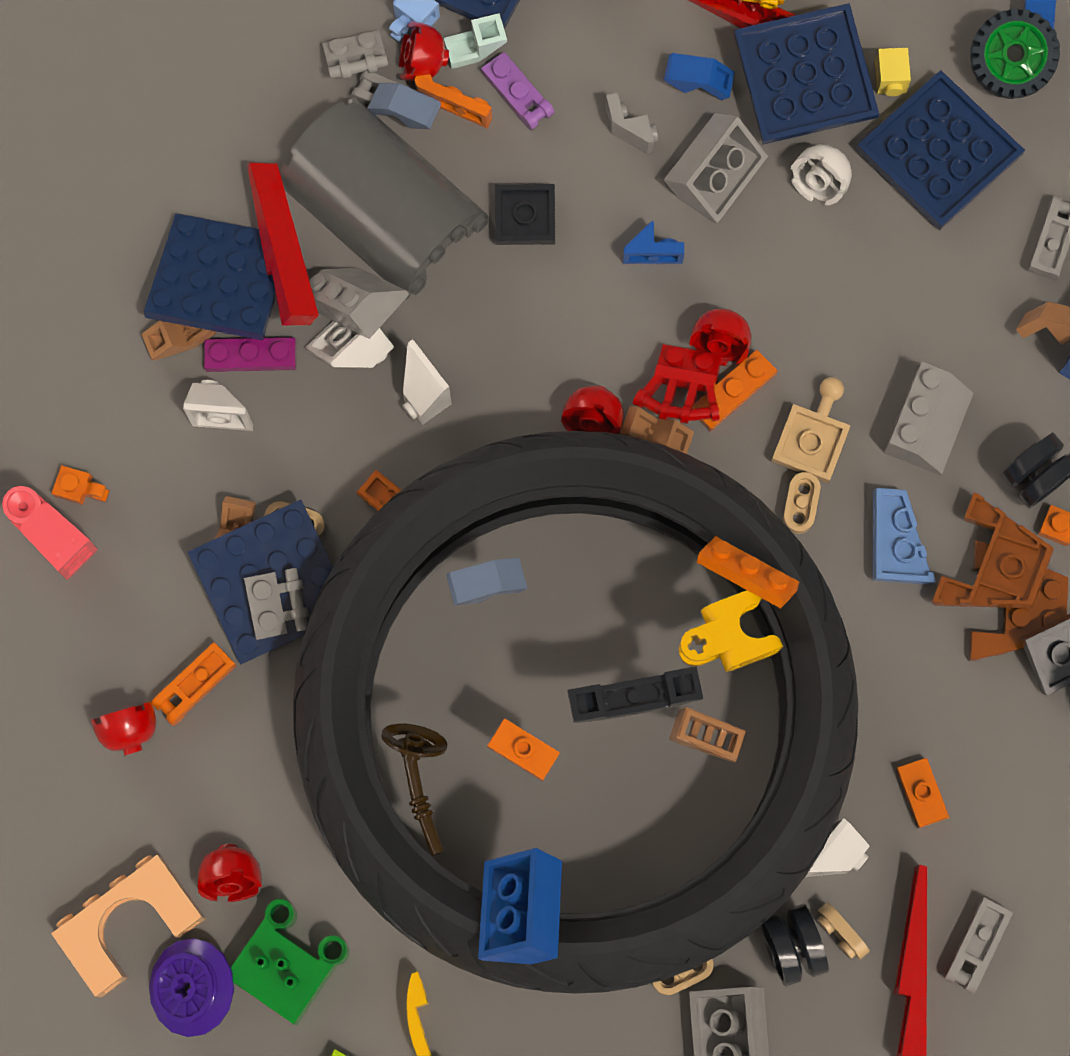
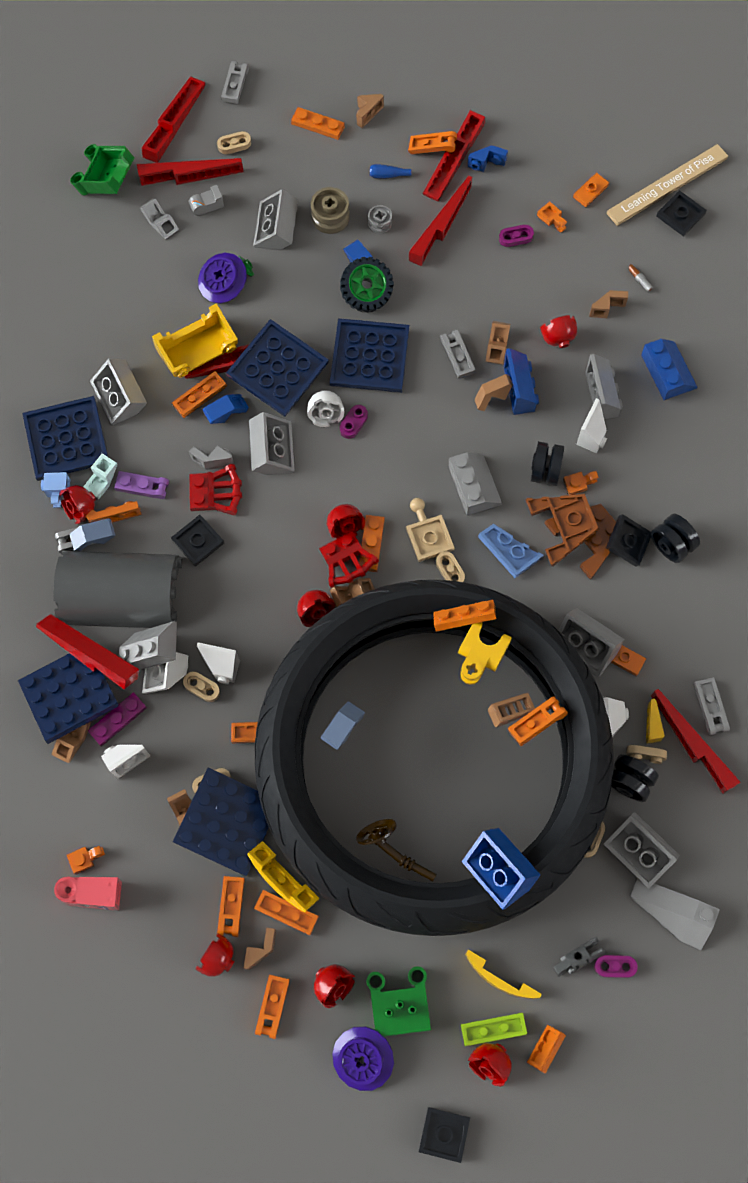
camera: 40 degrees left, 5 degrees down
(83, 934) = (285, 1082): light nougat arch -> none
(143, 838) = (272, 1005): none -> orange plate
(171, 764) = (255, 955): none -> medium nougat slope
(249, 746) = (286, 913): none -> orange plate
(267, 607) = (237, 835): light grey plate -> none
(275, 702) = (280, 880): none -> yellow slope
(355, 54) = (44, 530): light grey plate -> none
(379, 398) = (202, 687): none -> tan plate
(523, 749) = (429, 793): orange plate -> none
(586, 156) = (203, 490): none -> red plate
(635, 696) = (462, 719): black slope -> none
(646, 251) = (272, 510): blue slope -> none
(683, 32) = (199, 394): none -> orange plate
(725, 775) = (537, 721): none -> orange plate
(847, 219) = (353, 420): none -> magenta plate
(881, 908) = (654, 727): none -> yellow slope
(892, 71) = (316, 336): light yellow brick -> none
(894, 734) = (591, 640): none -> light grey slope

